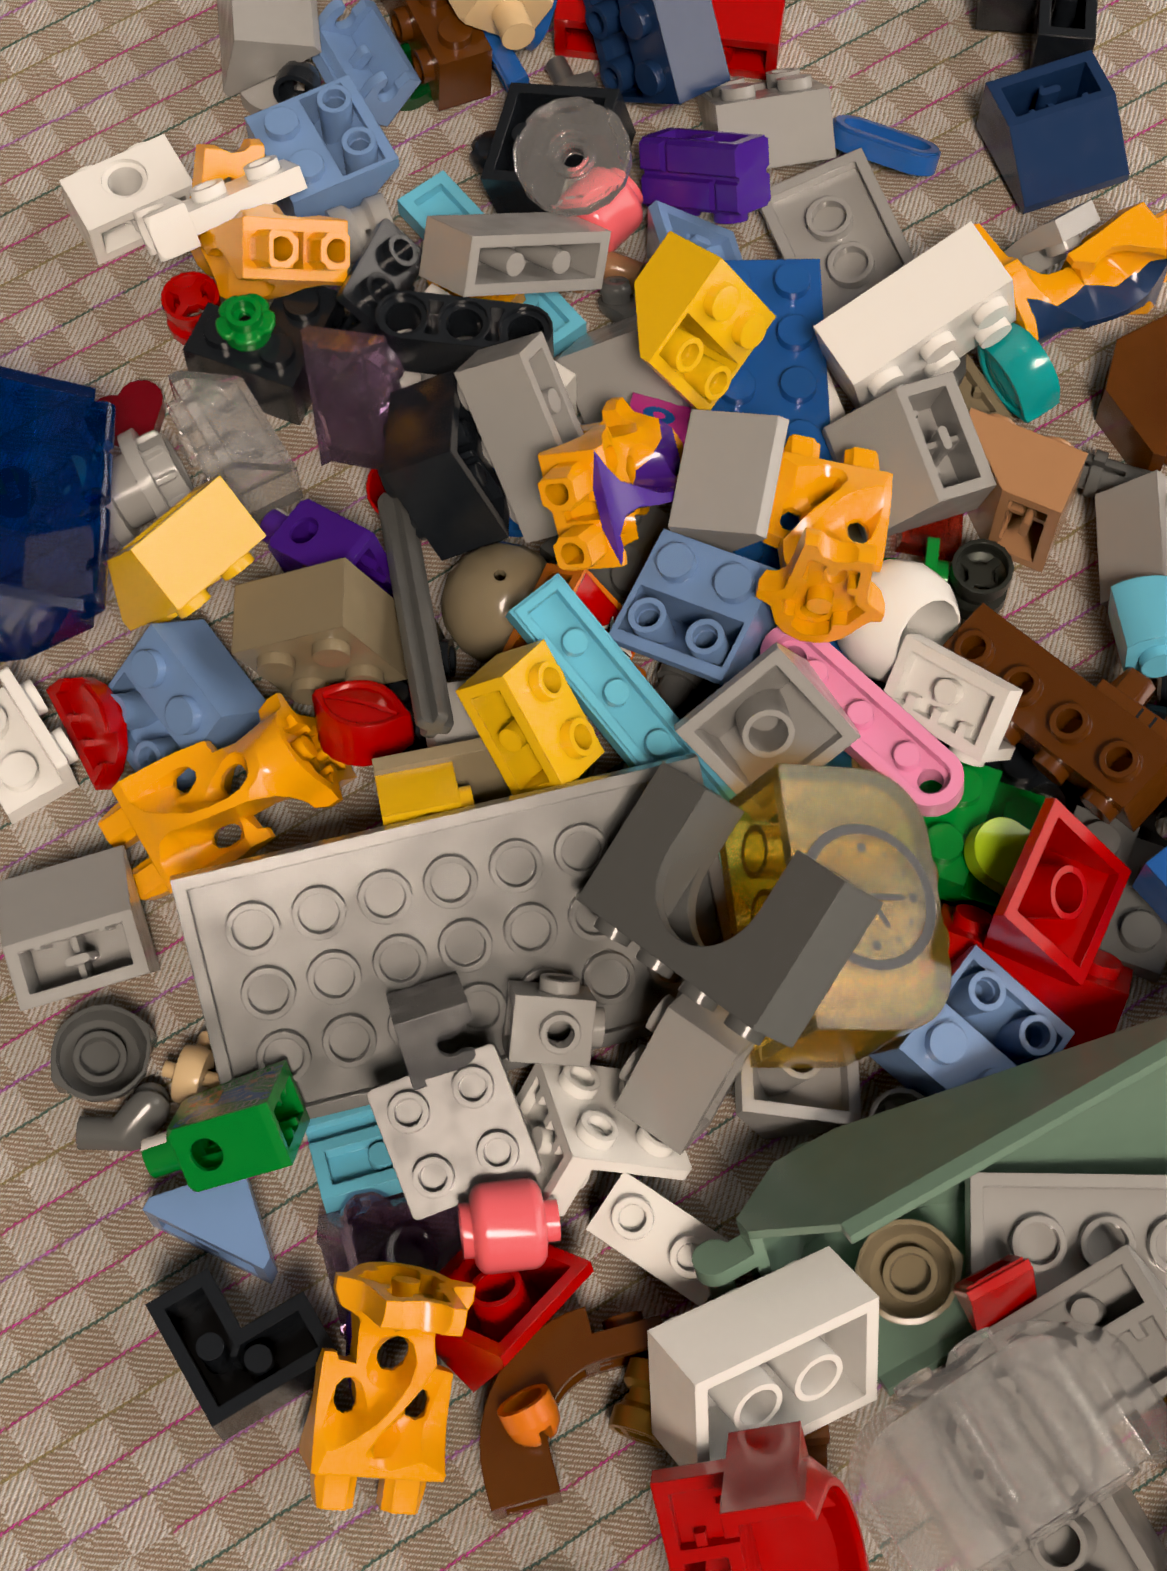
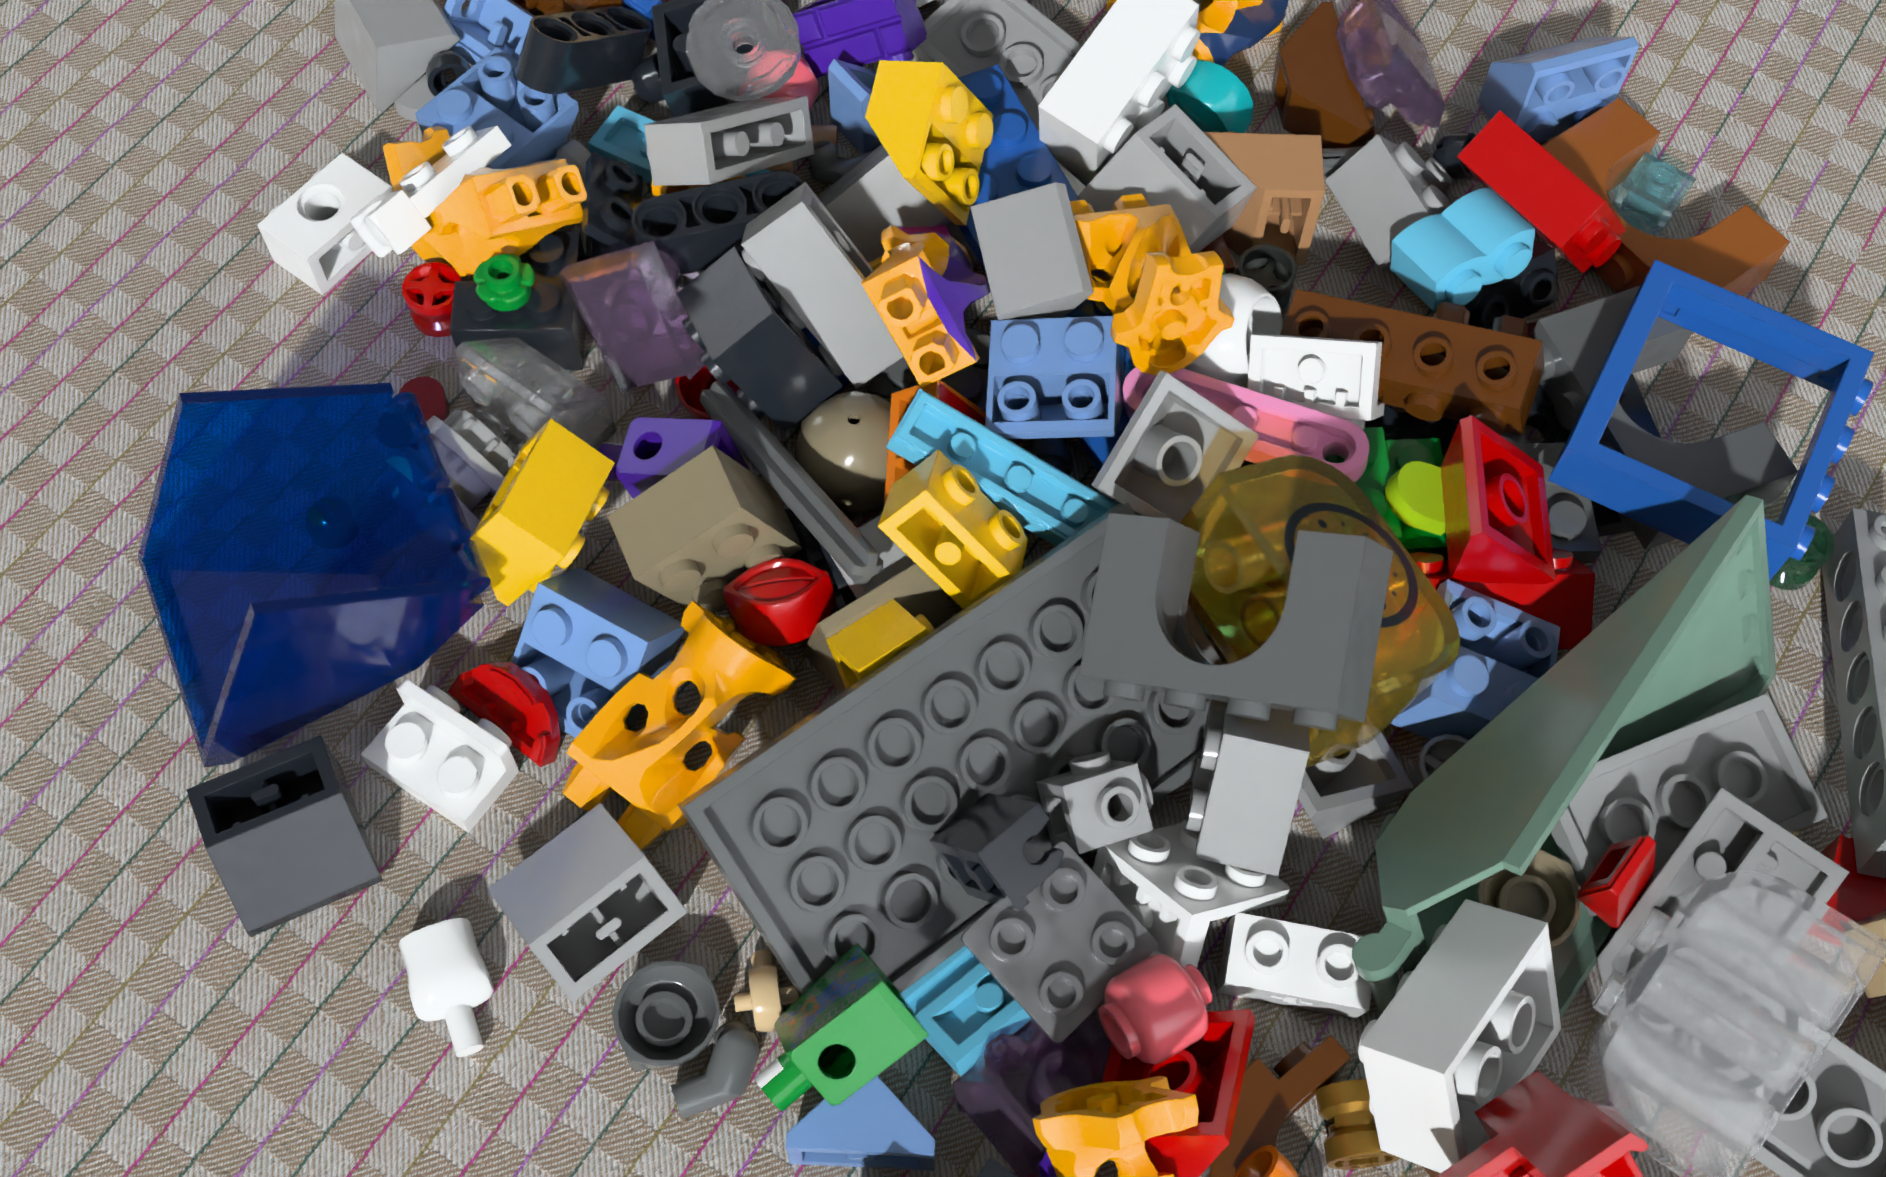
camera: 25 degrees left, 5 degrees down
(427, 104) = (582, 49): none -> black beam

